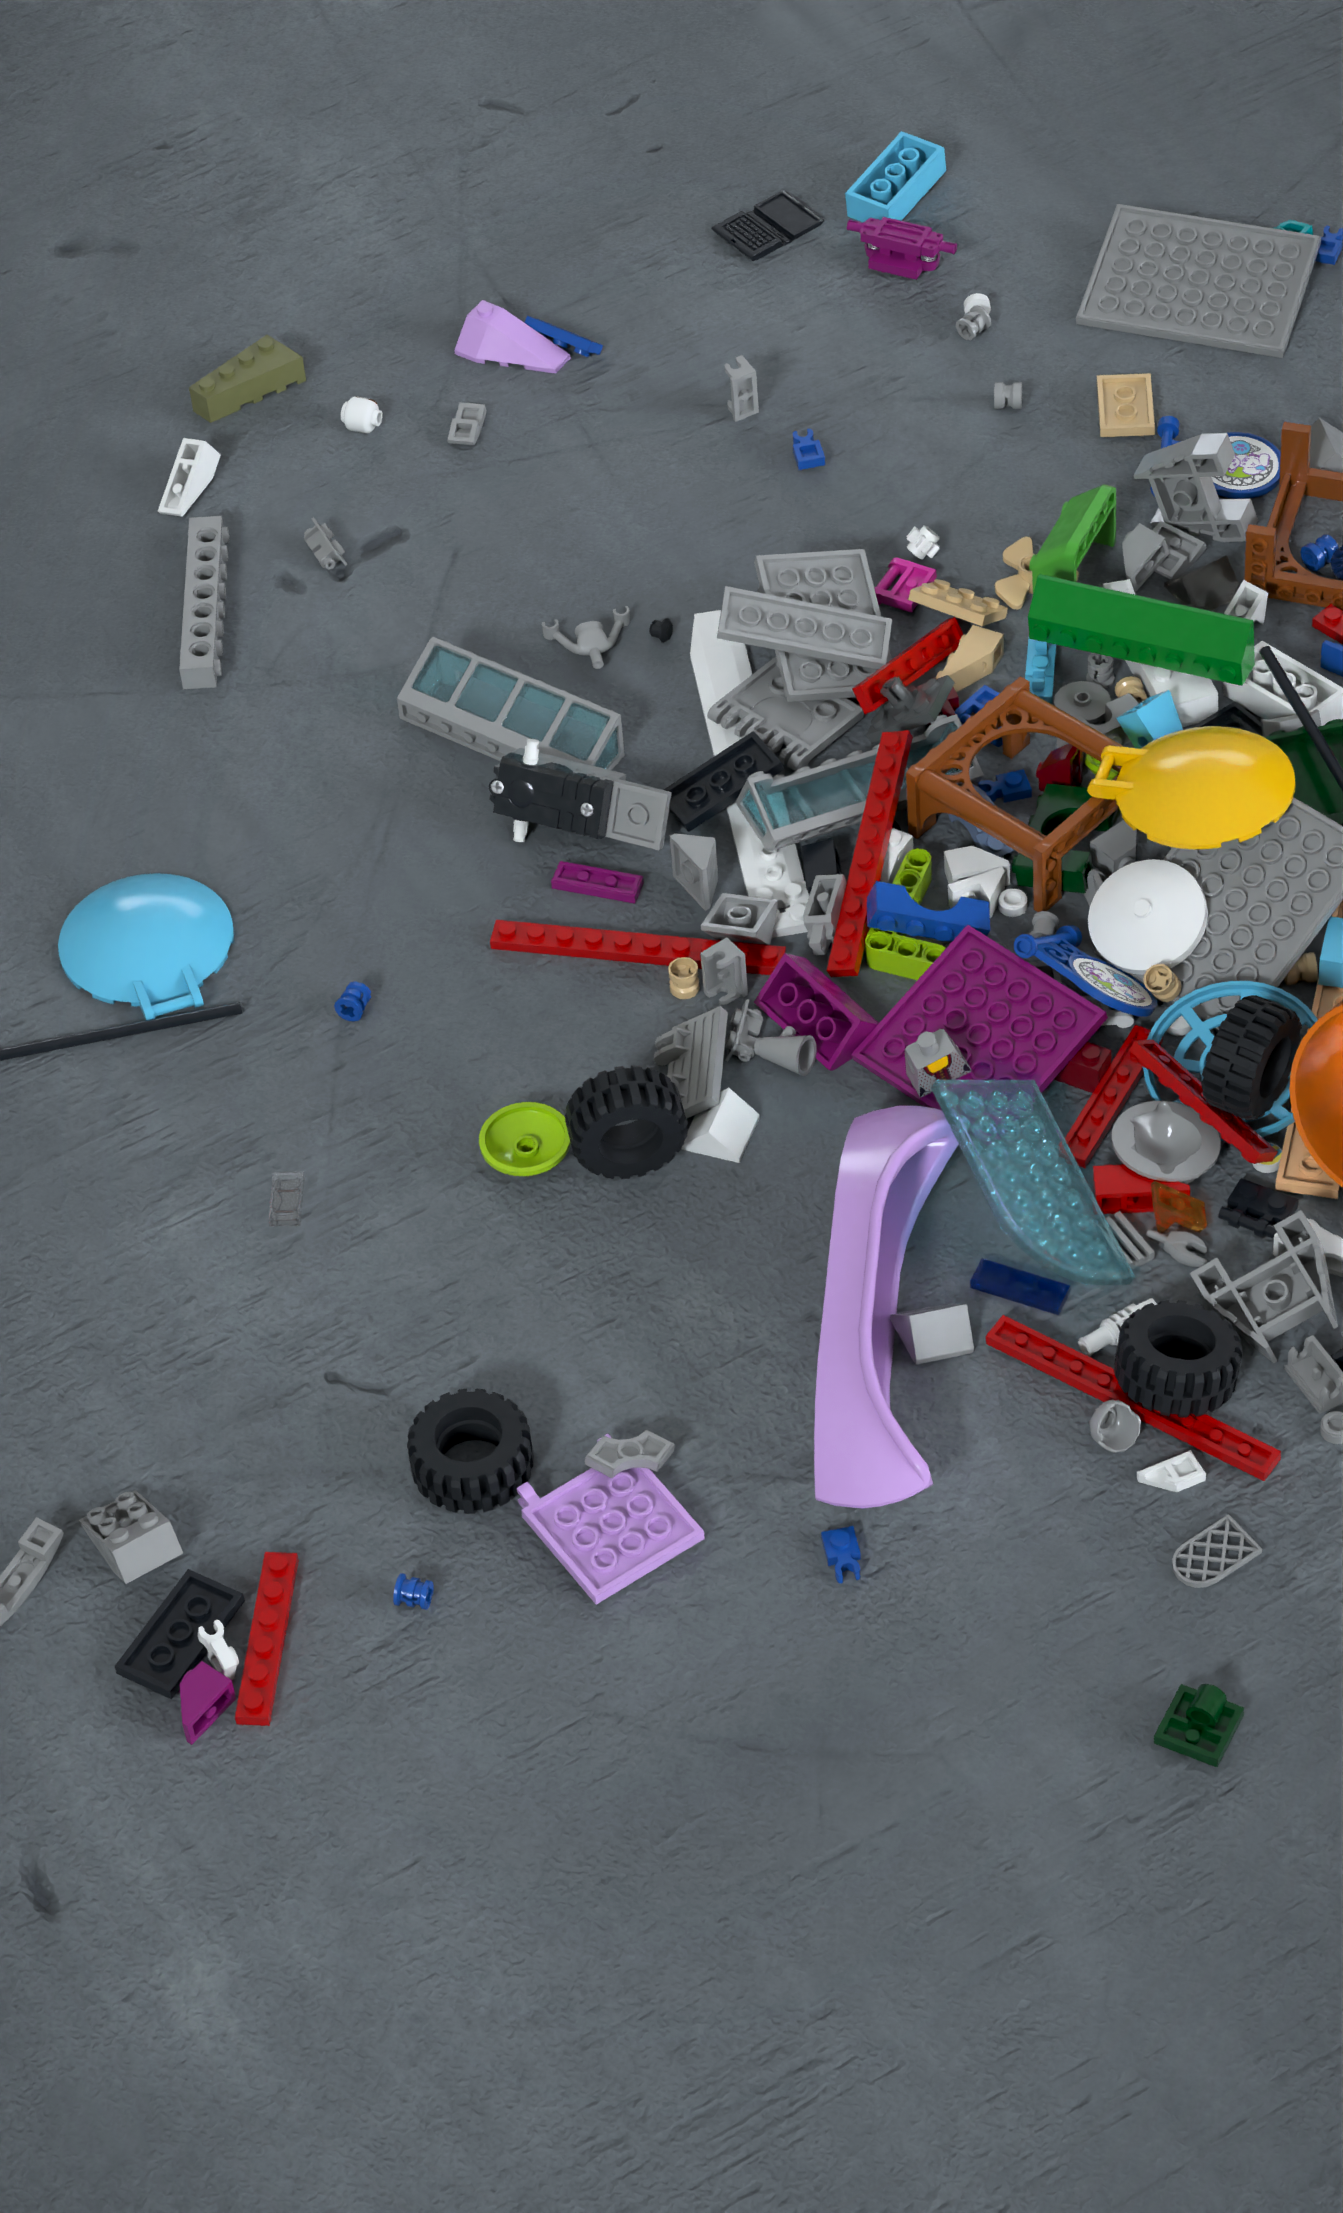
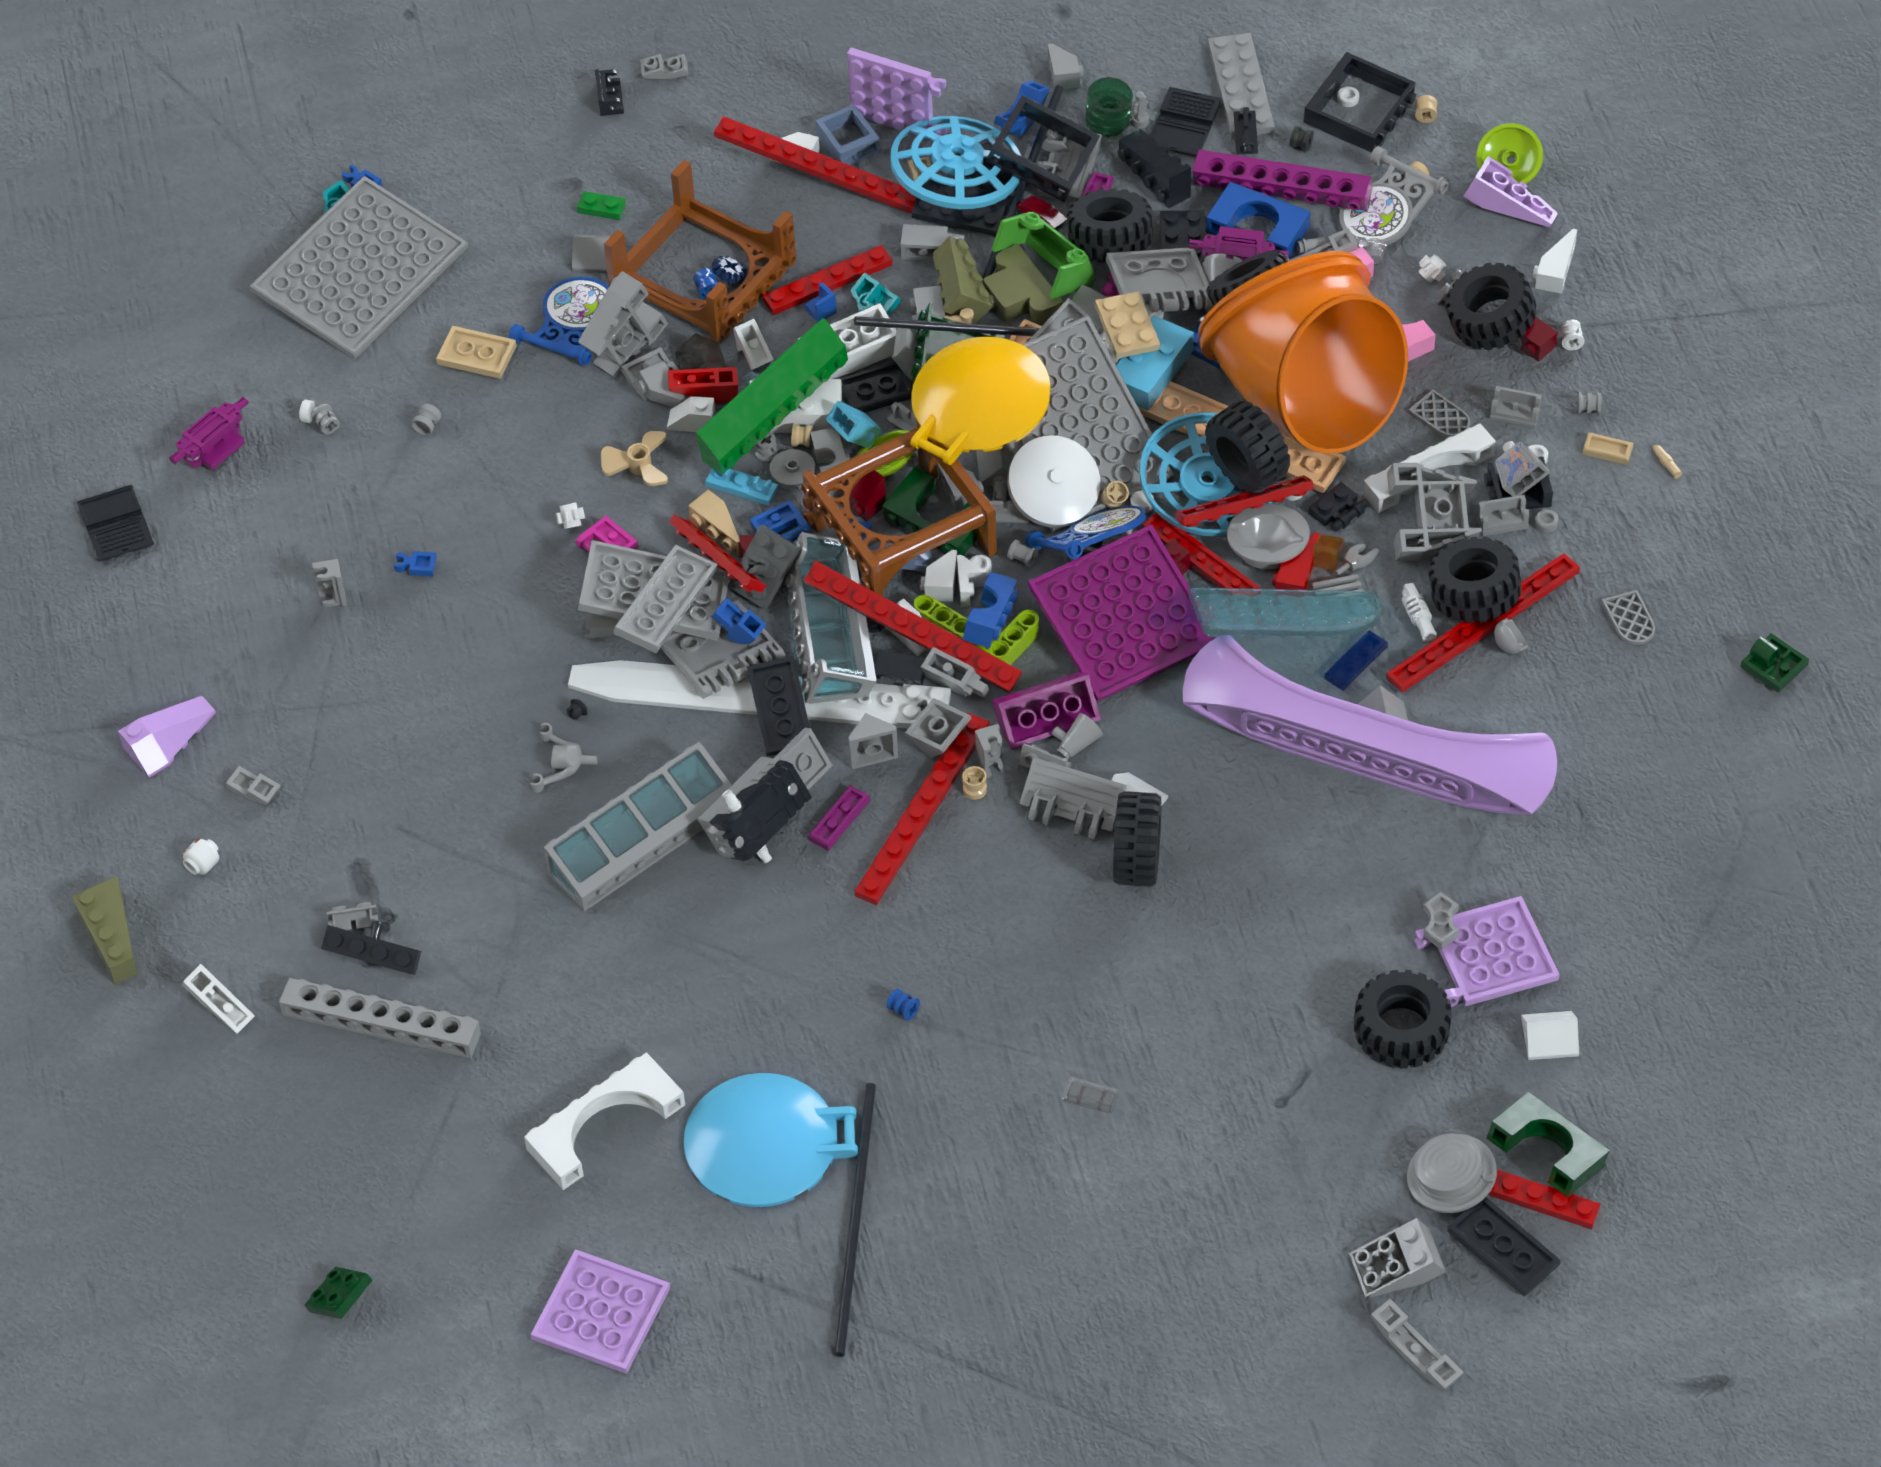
camera: 75 degrees left, 5 degrees up
(89, 775) = (638, 1083): none -> white arch
(204, 1698) = (1572, 1241): magenta slope -> none
(220, 1655) = (1539, 1220): white plate -> none
(266, 1553) = (1451, 1173): none -> light grey piece
(287, 570) = (372, 948): none -> black plate
(325, 1680) = (1533, 1118): none -> arch
(413, 1592) = (1514, 1086): blue bush -> none
(509, 1611) = (1551, 1035): none -> white slope
(524, 1139) = (1103, 907): lime dish -> none
(563, 337) = (183, 692): blue plate -> none
(812, 703) = (741, 626): none -> blue brick
(842, 1551) = (1557, 823): blue plate -> none
(896, 179) = (125, 420): medium azure brick -> none
(932, 1059) = (1147, 637): light grey torso -> none
(958, 602) = (653, 510): tan plate -> none
(1082, 521) = (646, 410): bright green windscreen -> none
(1153, 576) = (708, 383): none -> red slope
(1174, 1473) = (1555, 618): white tile -> none

